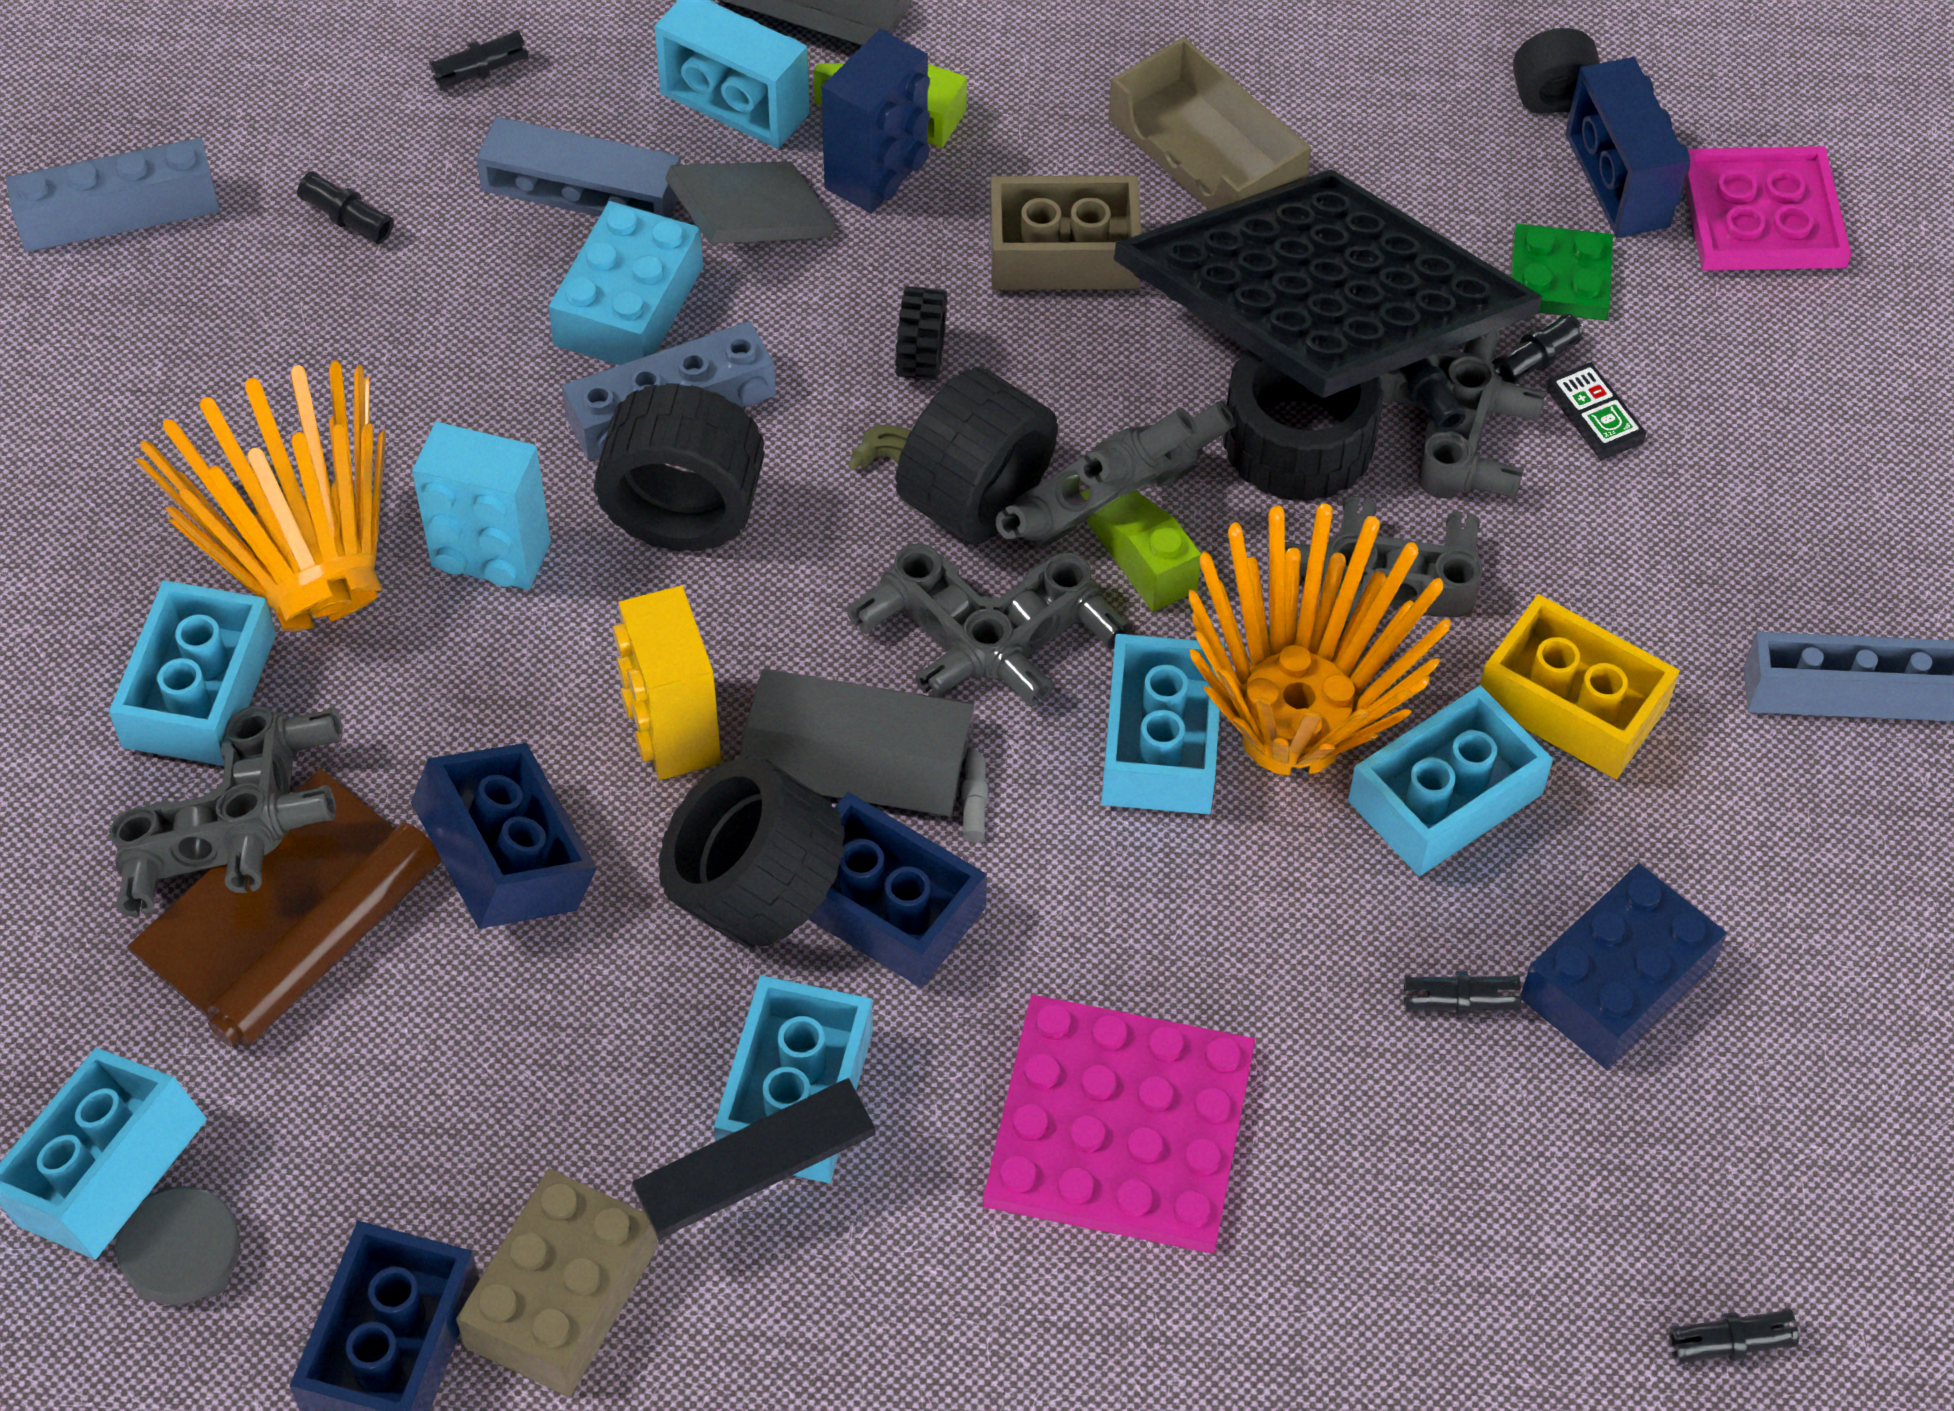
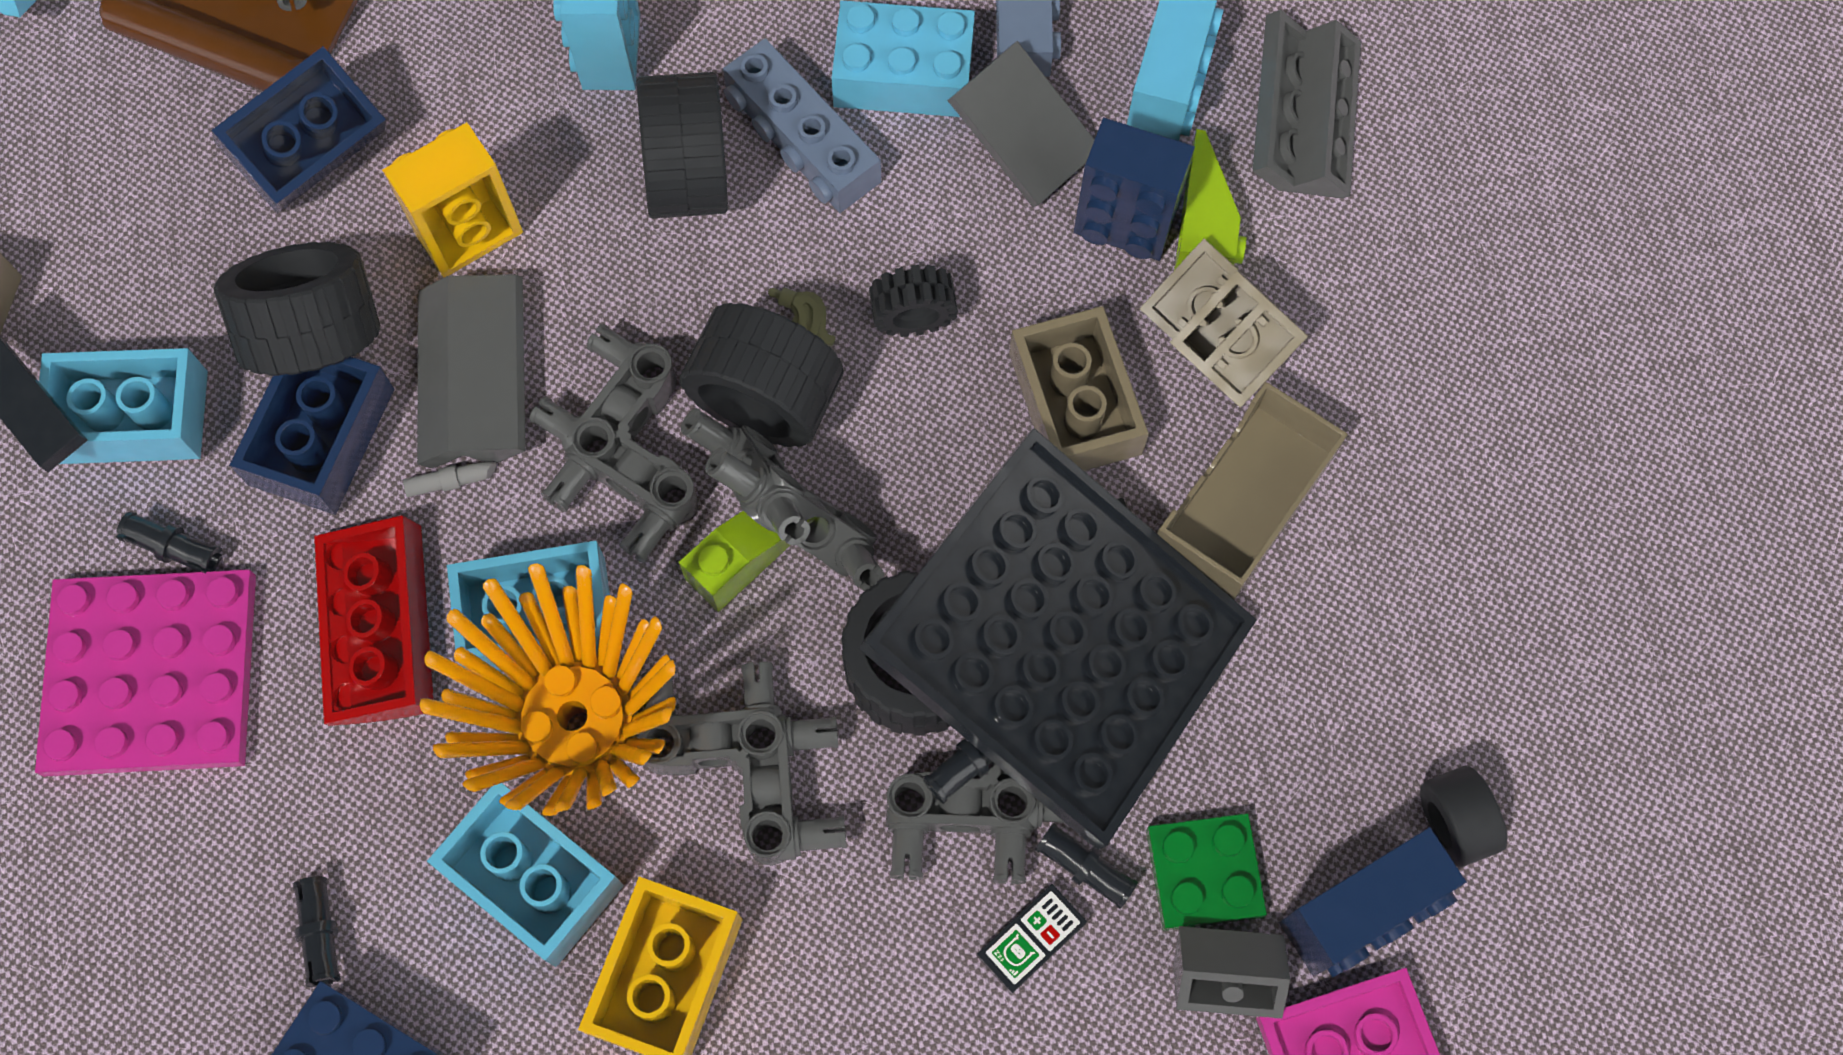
camera: 75 degrees right, 15 degrees up
(973, 1071) = (168, 543): none -> black pin
(1035, 97) = (1223, 323): none -> dark tan bracket
(1126, 886) = (372, 622): none -> red slope
(1664, 263) = (1231, 972): none -> dark grey brick

